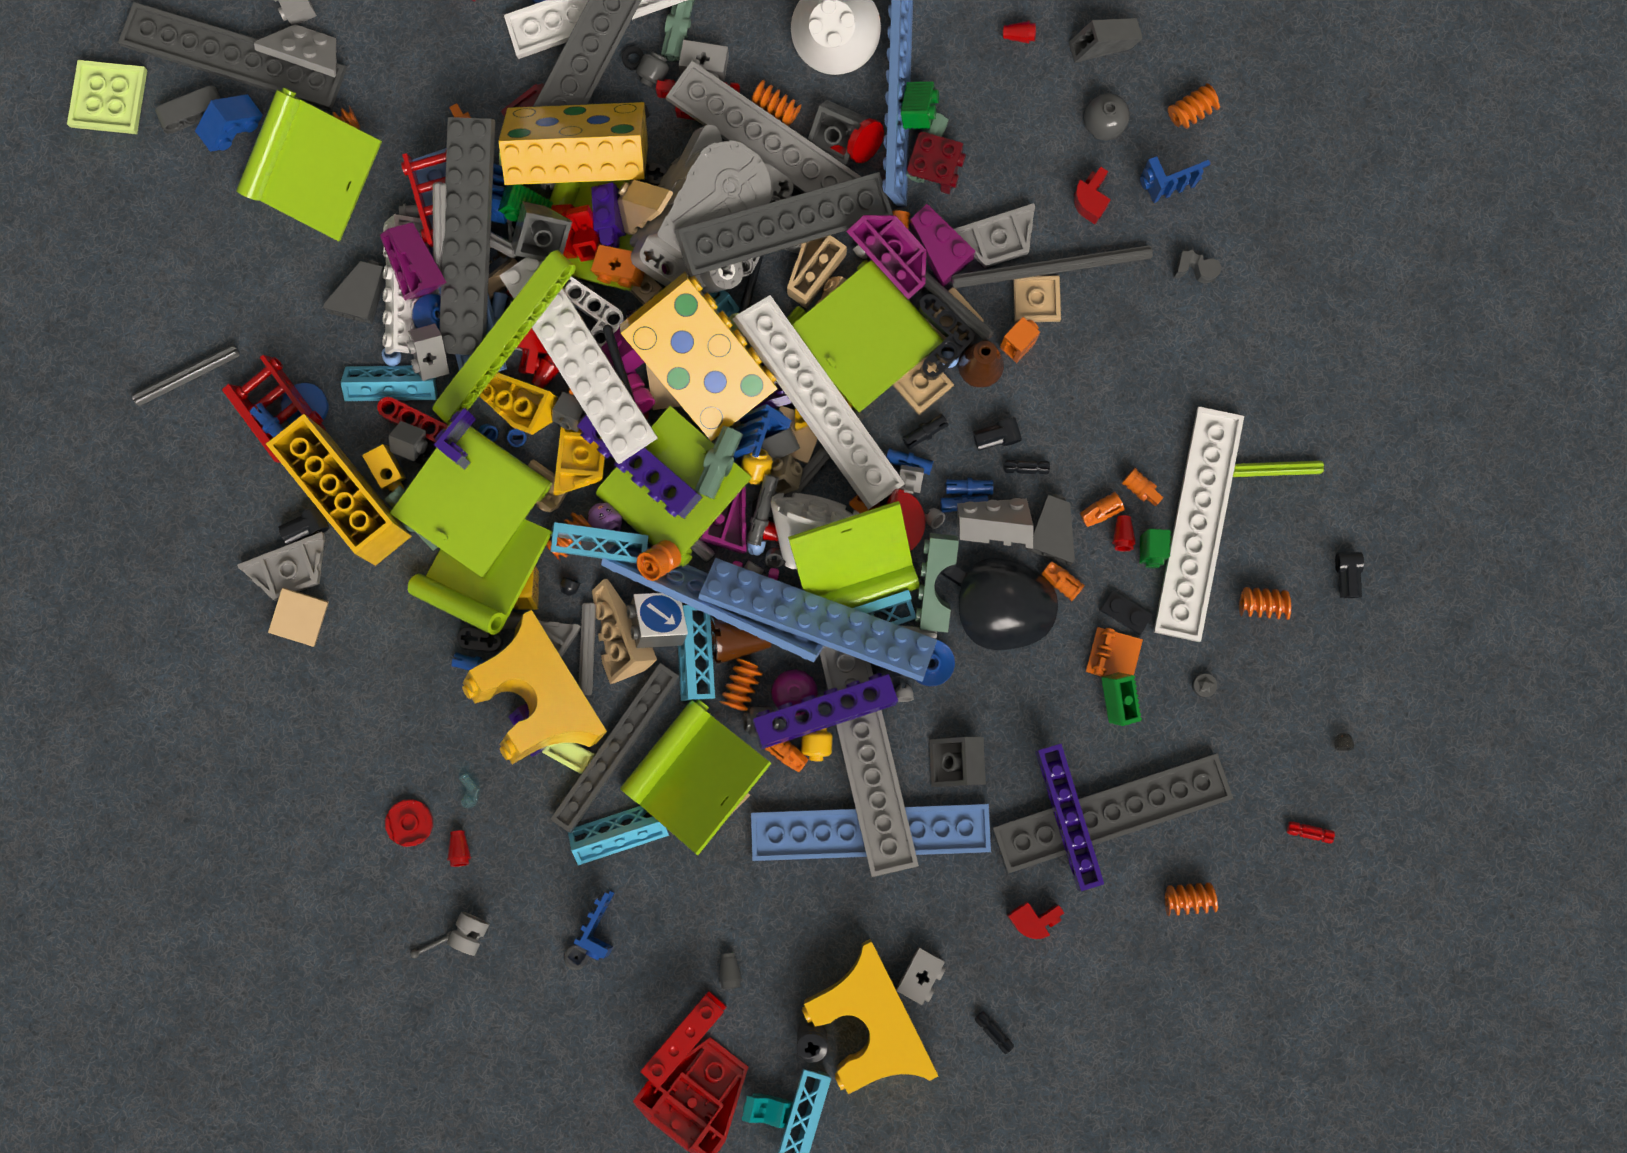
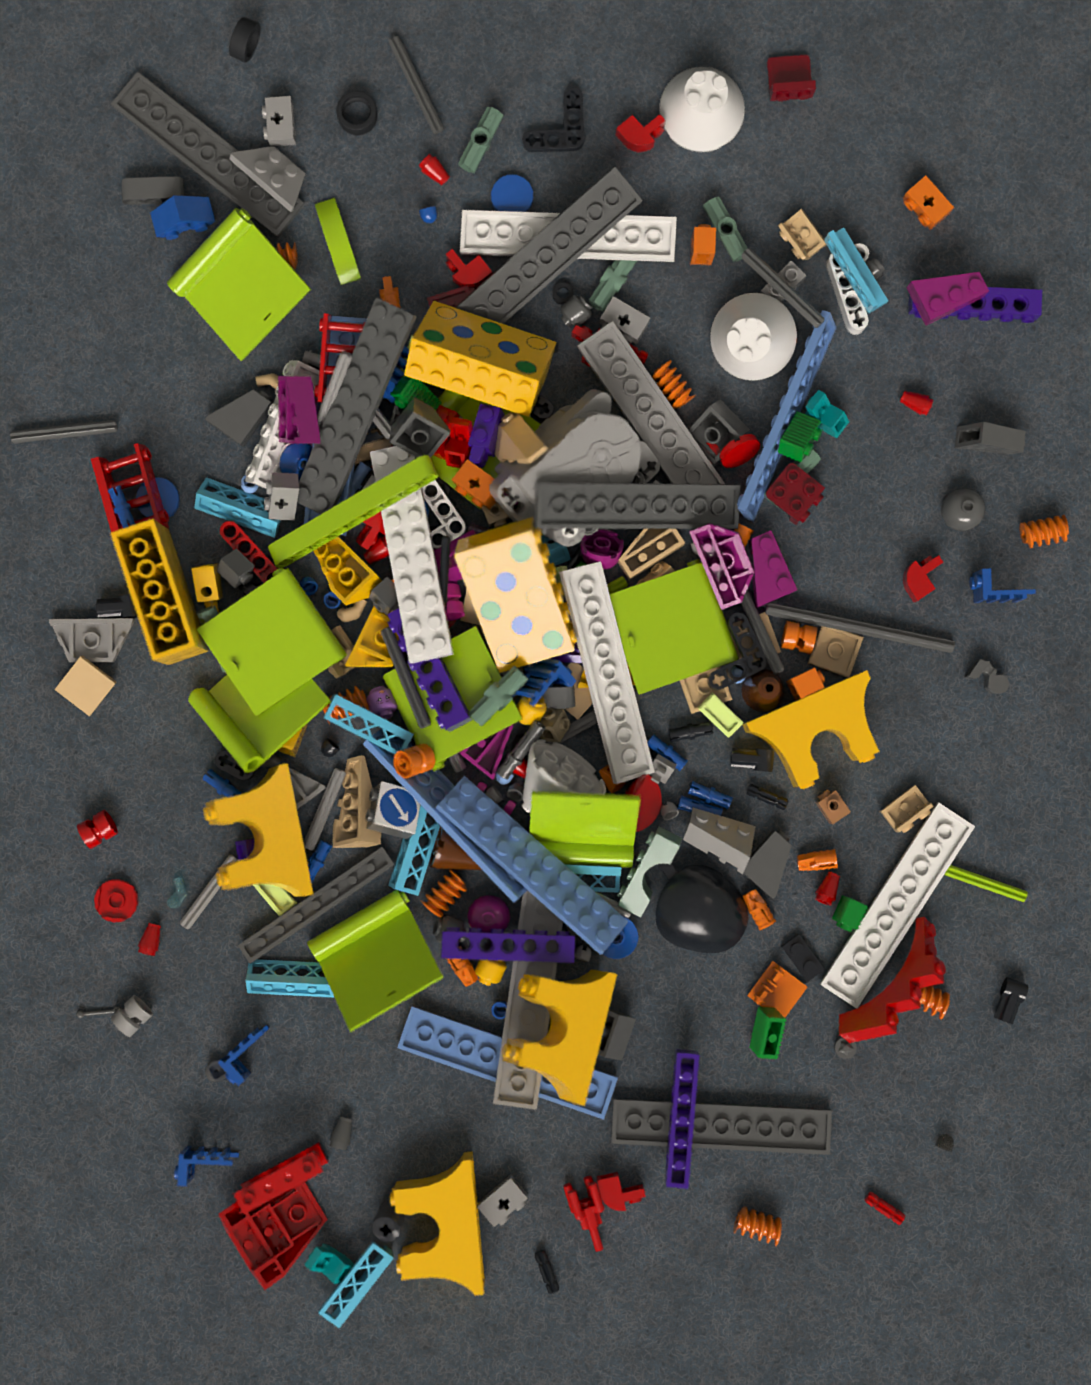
camera: 15 degrees right, 5 degrees up
(107, 97) = (83, 150): yellowish green plate -> none
(363, 756) = (95, 830): none -> red wheel
(371, 249) = (268, 379): none -> tan arm
(392, 91) = (337, 241): none -> lime slope
(447, 439) = (270, 600): dark purple bracket -> none
(472, 32) = (428, 214): none -> blue hinge
(497, 790) = (203, 899): none -> light grey axle
(533, 72) = (467, 275): none -> red brick
(541, 444) = (351, 613): none -> tan arm
(581, 1070) = (187, 1159): none -> blue plate
(600, 699) = (317, 858): none -> blue pin
(619, 483) = (405, 678): none -> dark grey axle
(766, 282) = (602, 547): none -> magenta cylinder
(843, 787) = (499, 1014): none -> blue hinge
(927, 771) = (577, 1024): none -> yellow piece
(945, 76) = (832, 418): none -> teal brick
(948, 403) = (720, 715): none -> yellowish green tile
(987, 298) = (798, 637): none -> orange wheel
(1000, 236) = (825, 581): light grey wing -> none
(1010, 950) = (587, 1209): none -> red plant
(1054, 356) = (796, 724): none -> yellow piece
(1102, 447) = (837, 812): none -> medium nougat brick
(1142, 487) = (860, 853): orange hinge -> none
(1169, 425) = (906, 809): none -> tan bracket
(1240, 606) = (903, 994): none -> red arch

